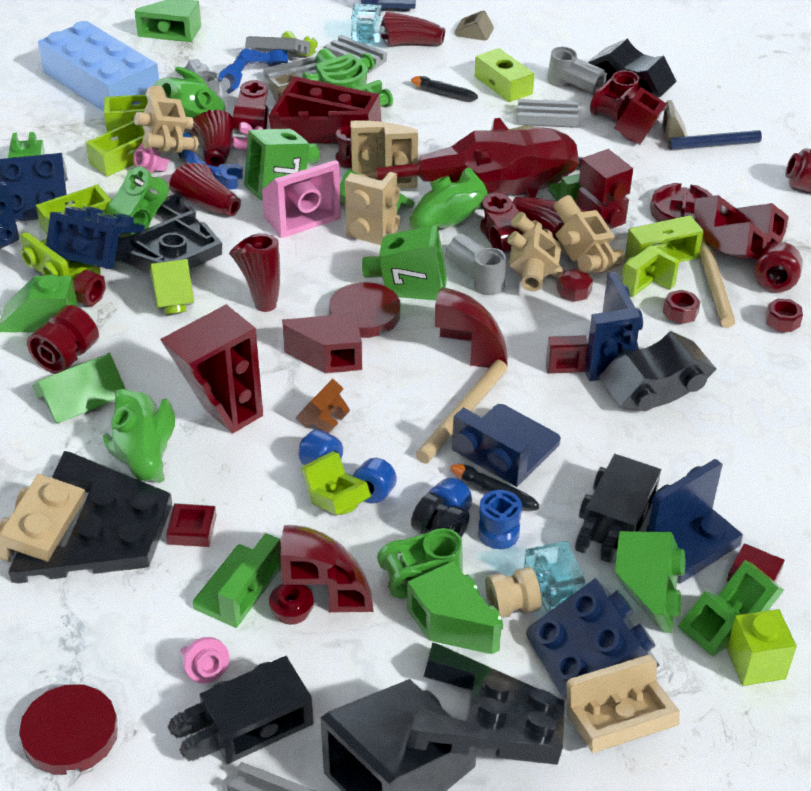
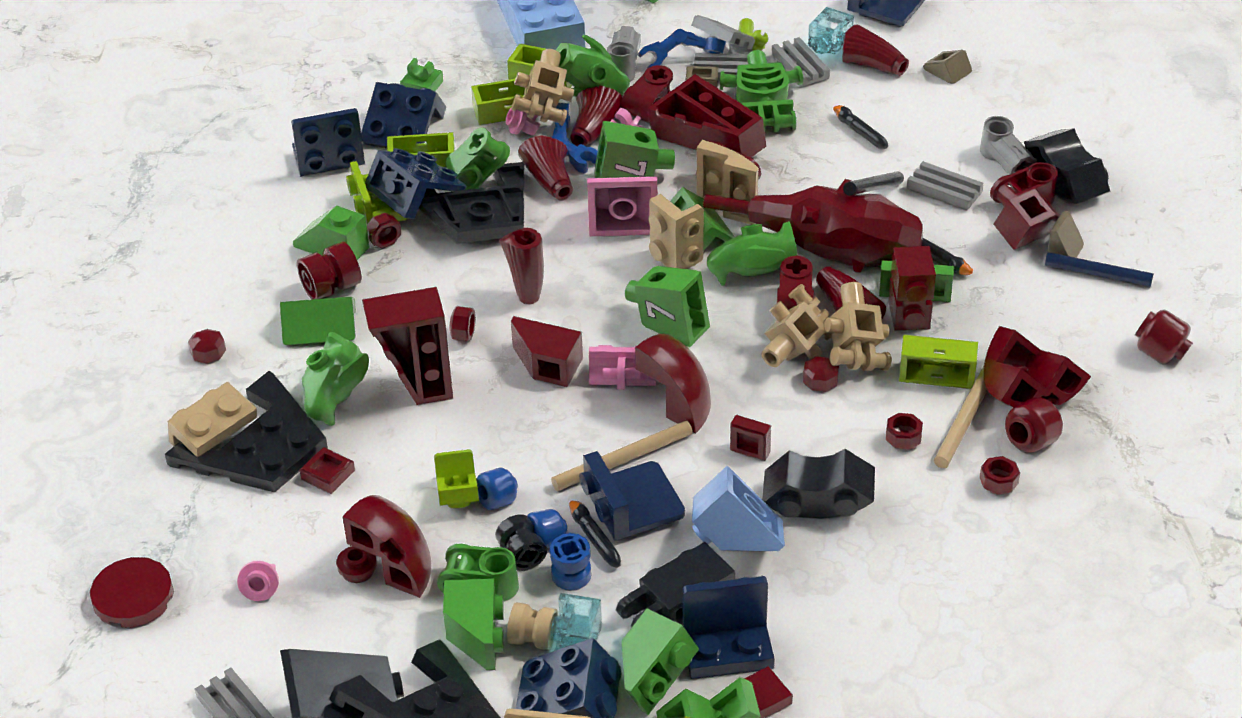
camera: 30 degrees right, 0 degrees up
(171, 286) = (447, 252): lime brick -> none
(240, 581) = (319, 536): bright green panel -> none
(245, 713) = (255, 631): black hinge -> none
(317, 444) = (469, 438): blue piece -> none
(319, 408) = (499, 403): dark orange tile -> none
(373, 303) = (609, 325): tile -> none
(406, 333) = (615, 367): none -> bright pink hips
(482, 264) = (741, 322): light grey piece -> none
(508, 120) = (873, 183): none -> black bar
(510, 76) = (930, 141): lime piece -> none
(613, 328) = (797, 429): dark blue bracket -> none
(618, 421) = (735, 516): none -> light blue slope
(650, 267) = (897, 382): lime bracket -> none
(675, 201) = (988, 317): dark red tile -> none

